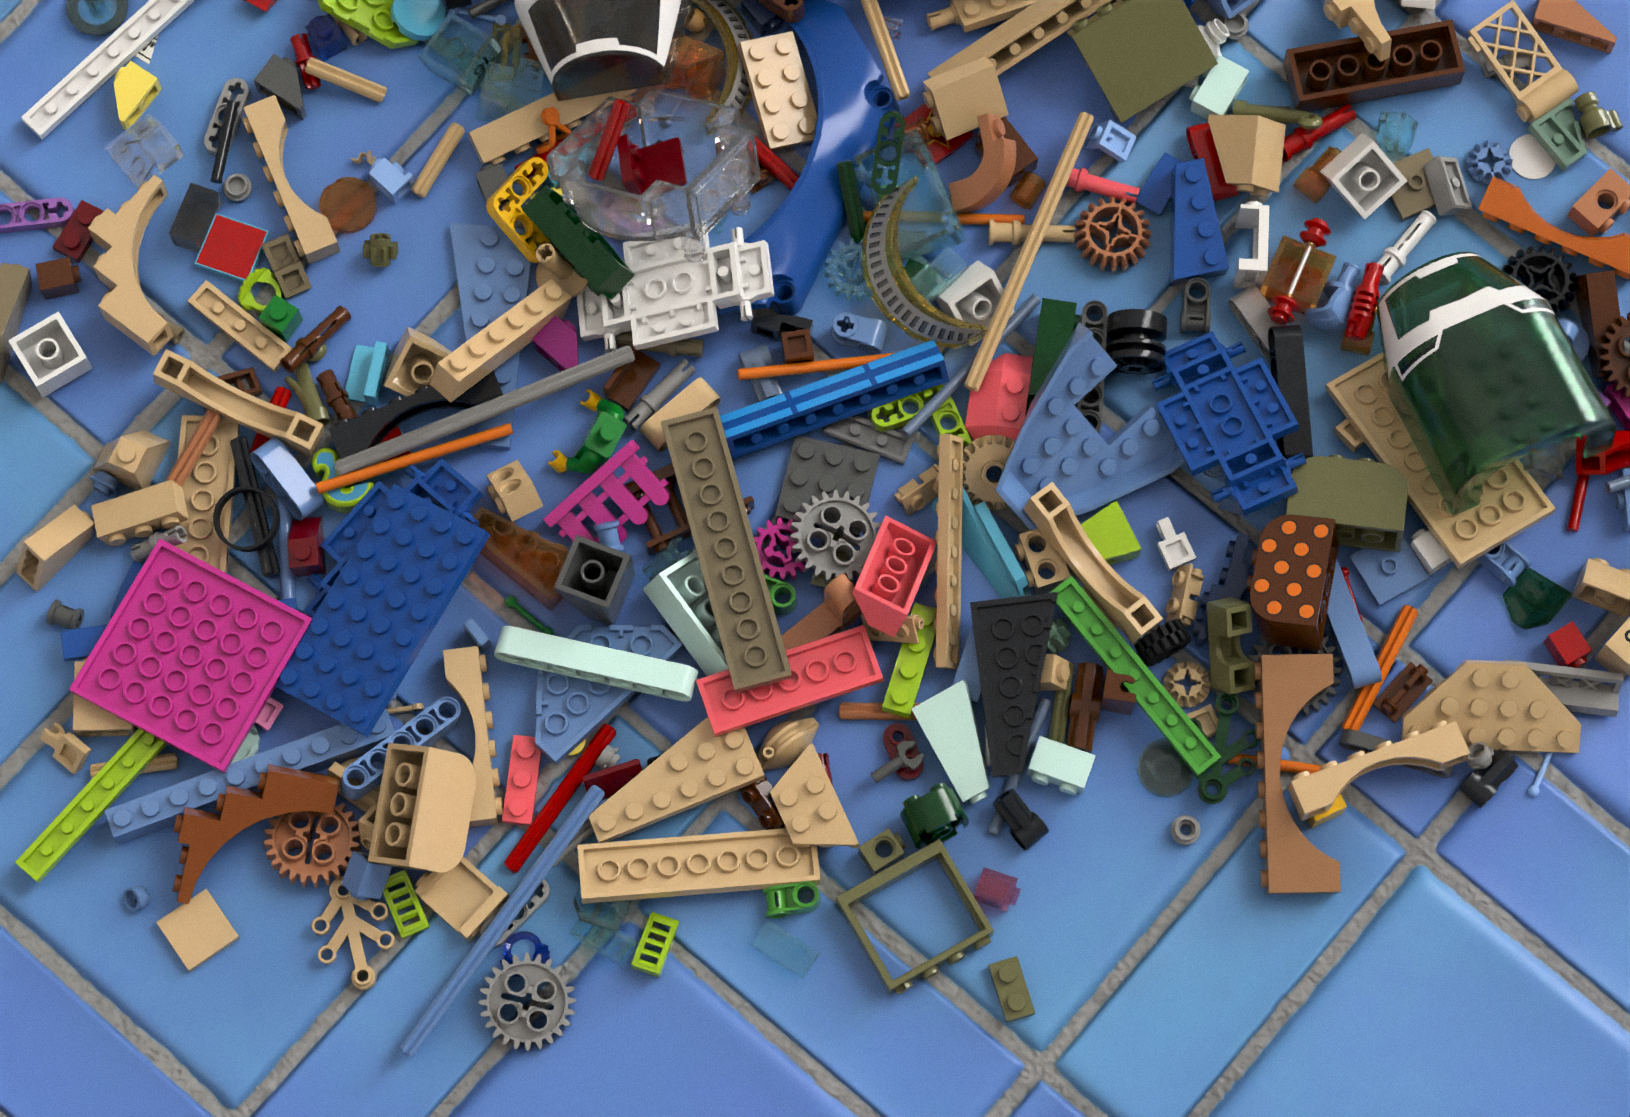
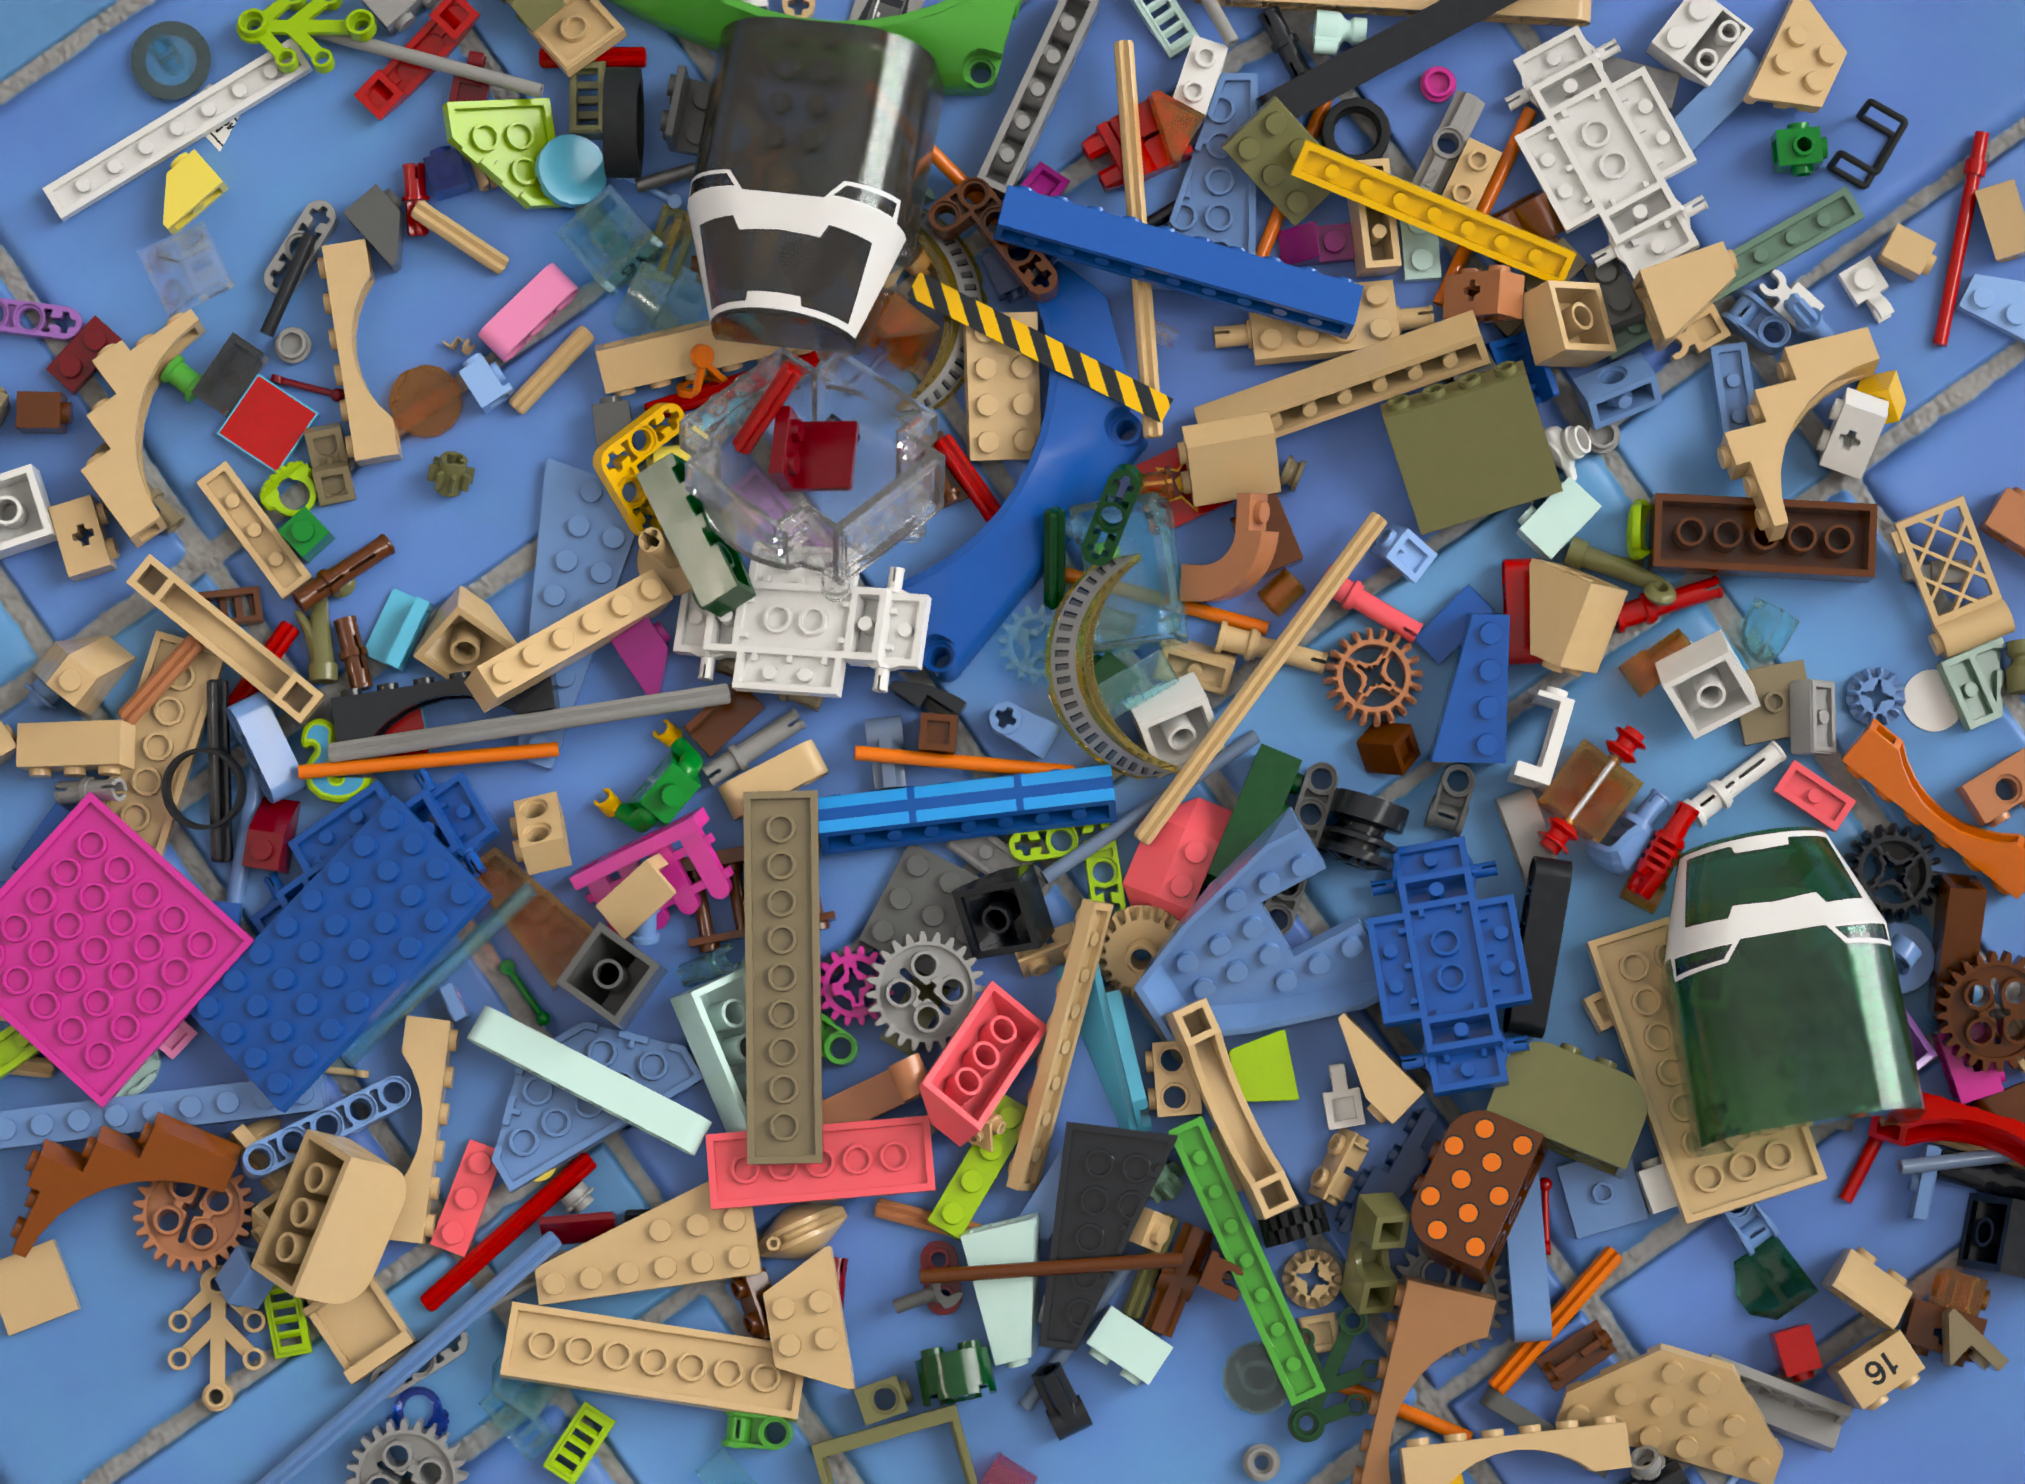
camera: 15 degrees right, 10 degrees up
(104, 346) = (69, 522): none -> tan brick
(157, 228) = (181, 377): none -> bright green bush
(278, 215) = (336, 394): none -> dark red hinge
(410, 122) = (528, 312): none -> bright pink beam
(460, 613) = (439, 973): none -> clear light blue piece
(600, 513) = (637, 897): none -> tan panel
(802, 51) = (1040, 347): none -> sticker
(880, 466) = (1004, 912): none -> black slope
(987, 712) = (1051, 1267): none -> reddish brown piece
(990, 255) = (1210, 668): none -> tan slope
(1013, 103) = (1292, 473): none -> dark tan bush
(1138, 282) = (1388, 748): none -> reddish brown panel
(1201, 518) = (1380, 1076): none -> tan slope
(1277, 83) = (1635, 529): none -> lime piece
(1458, 238) = (1814, 796): none -> coral plate

